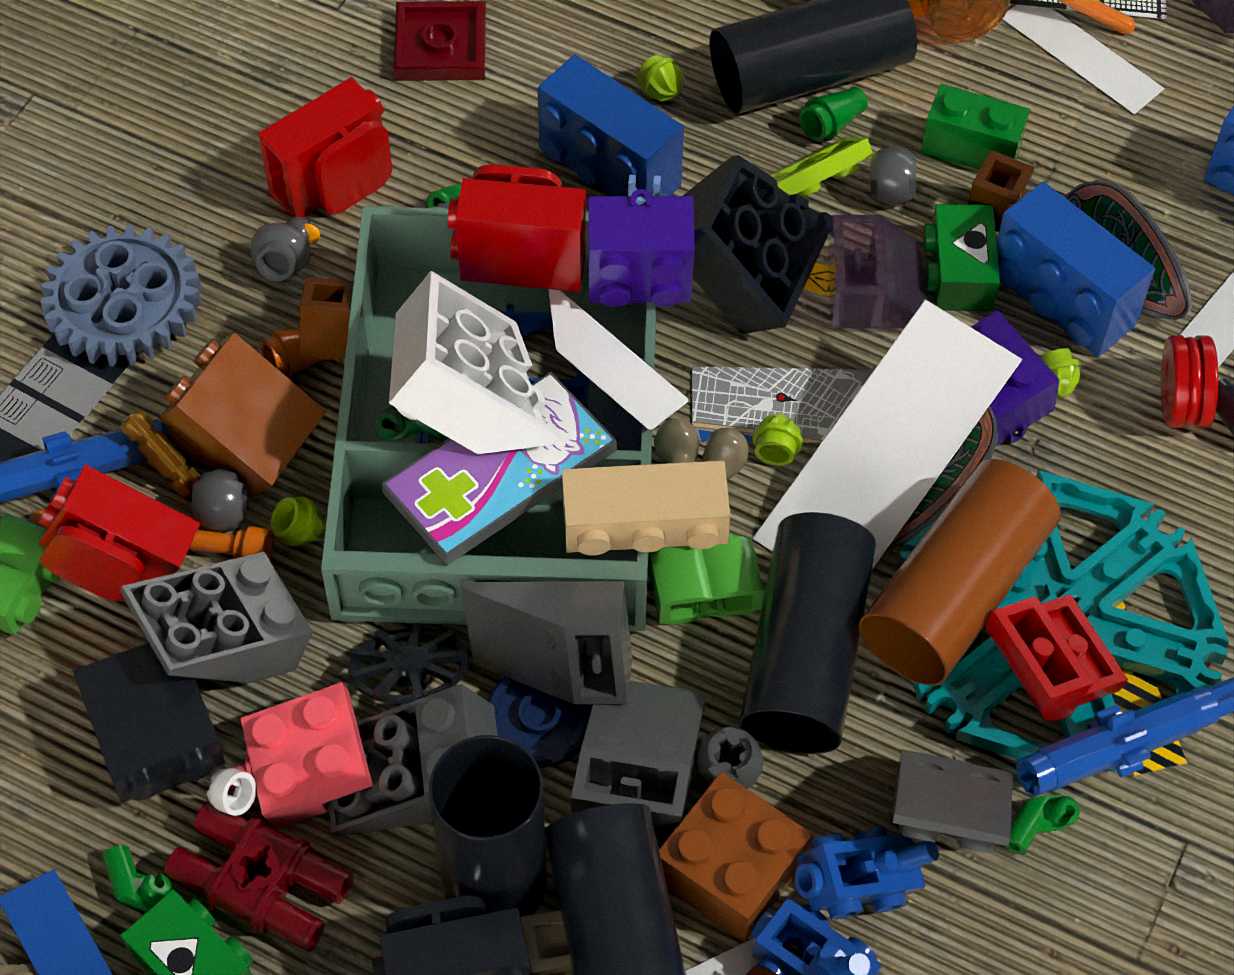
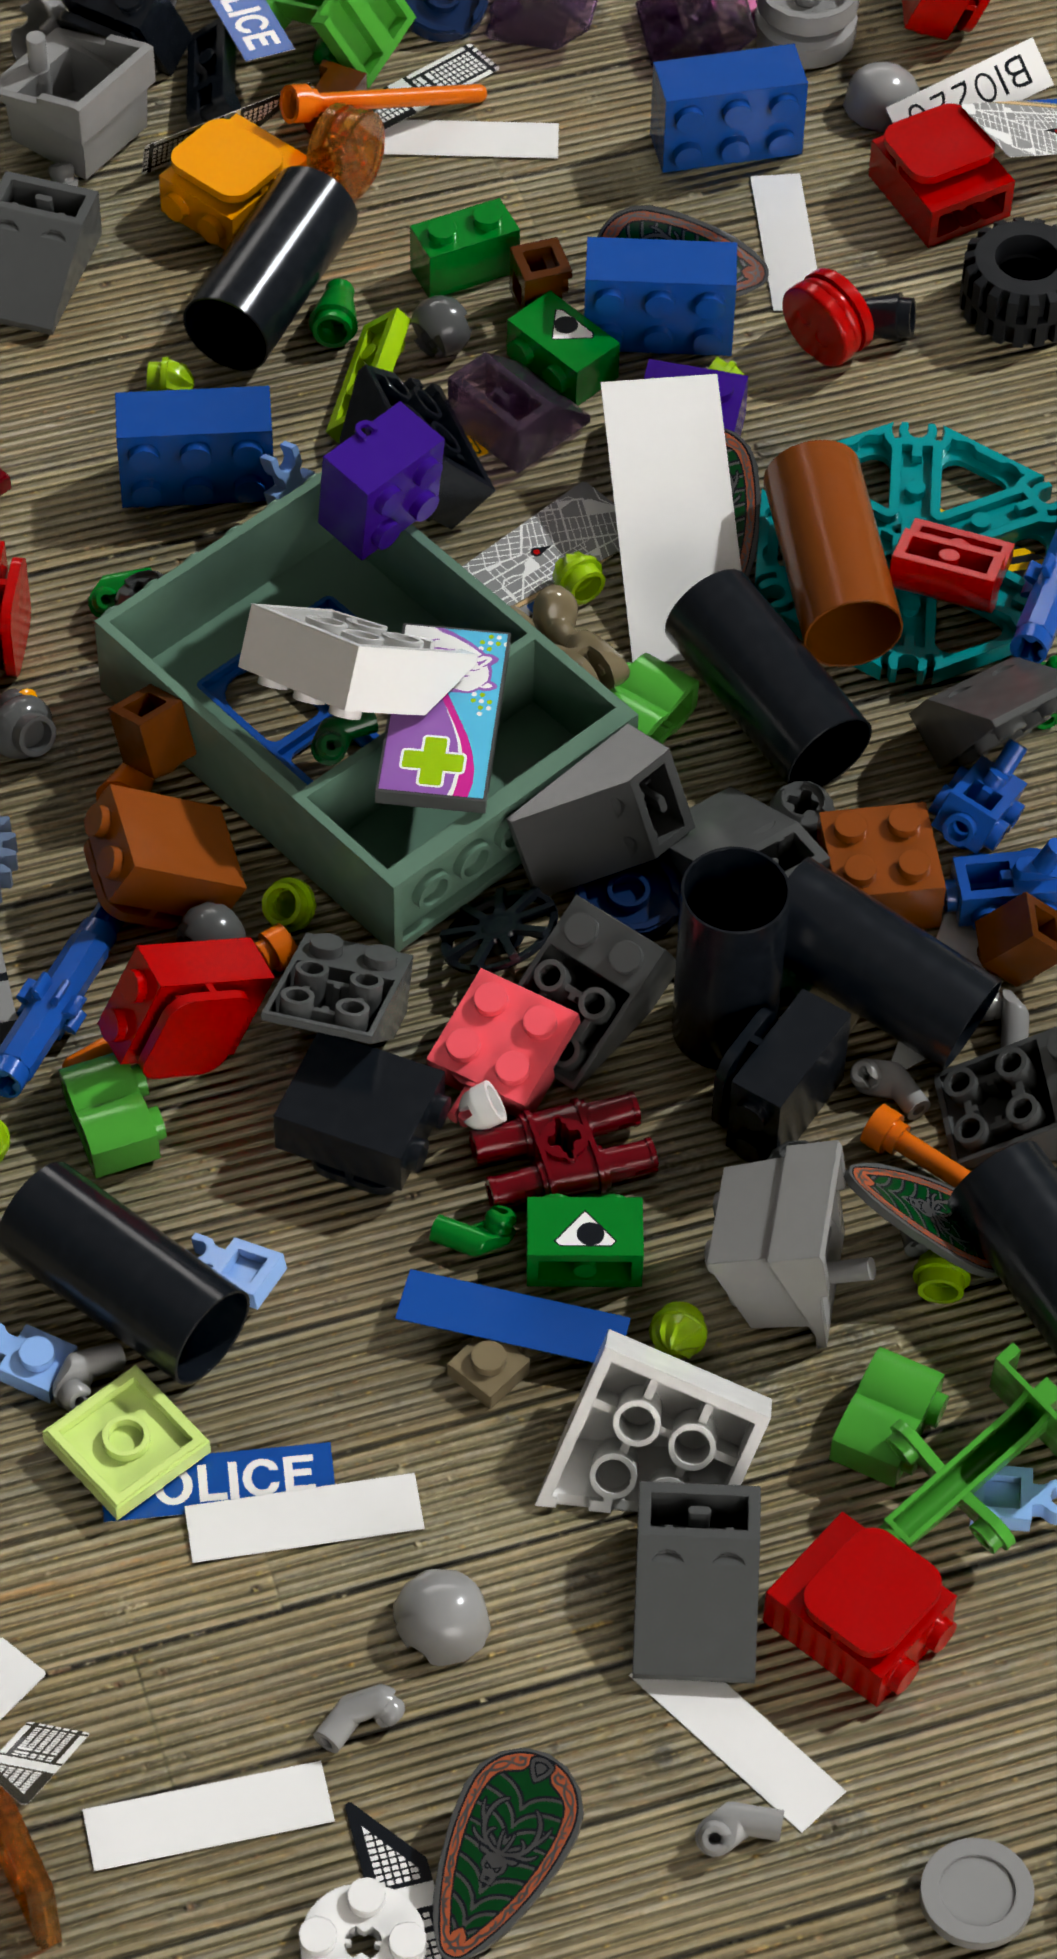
camera: 45 degrees left, 5 degrees down
(160, 452) = (116, 931): pearl gold axle -> none
(519, 229) = (272, 531): red brick -> none
(611, 364) = (431, 589): white sticker -> none
(646, 507) = (589, 659): tan brick -> none

